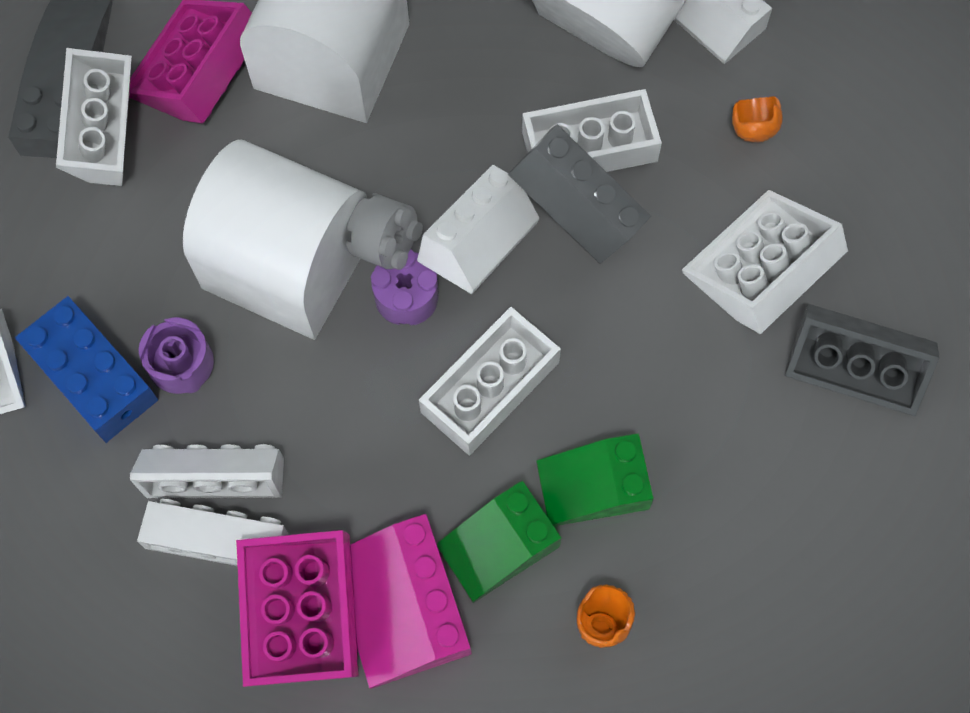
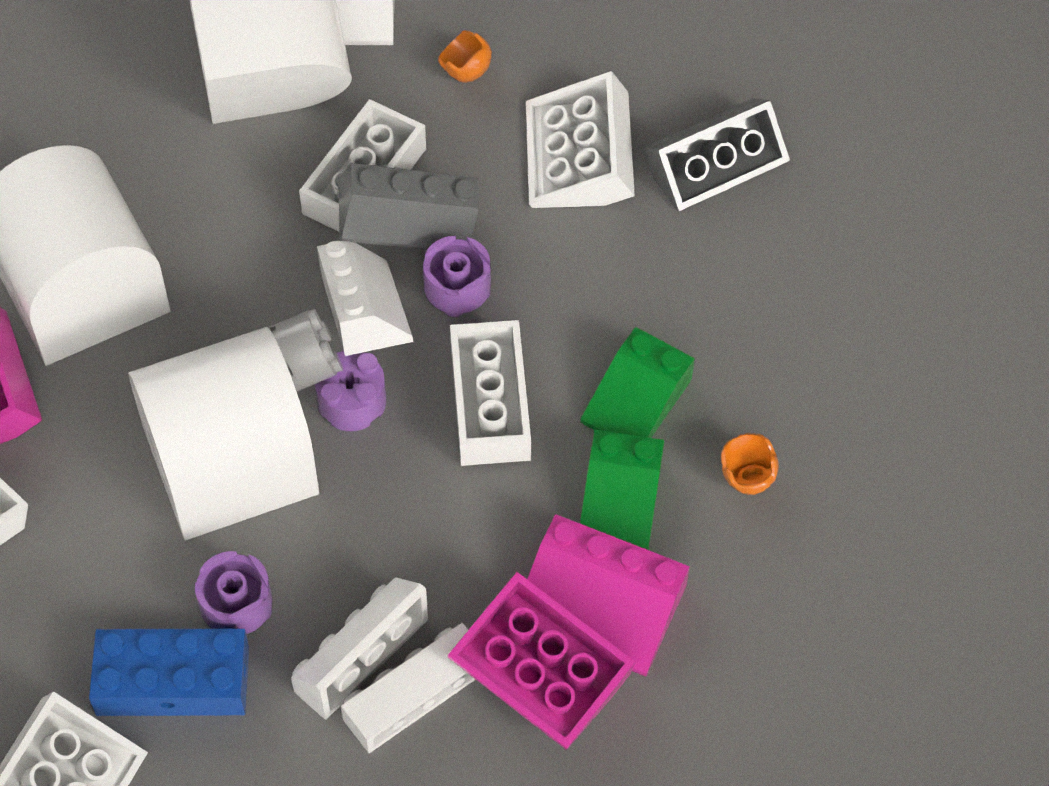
camera: 50 degrees left, 10 degrees down
(563, 291) = (457, 275): none -> medium lavender brick

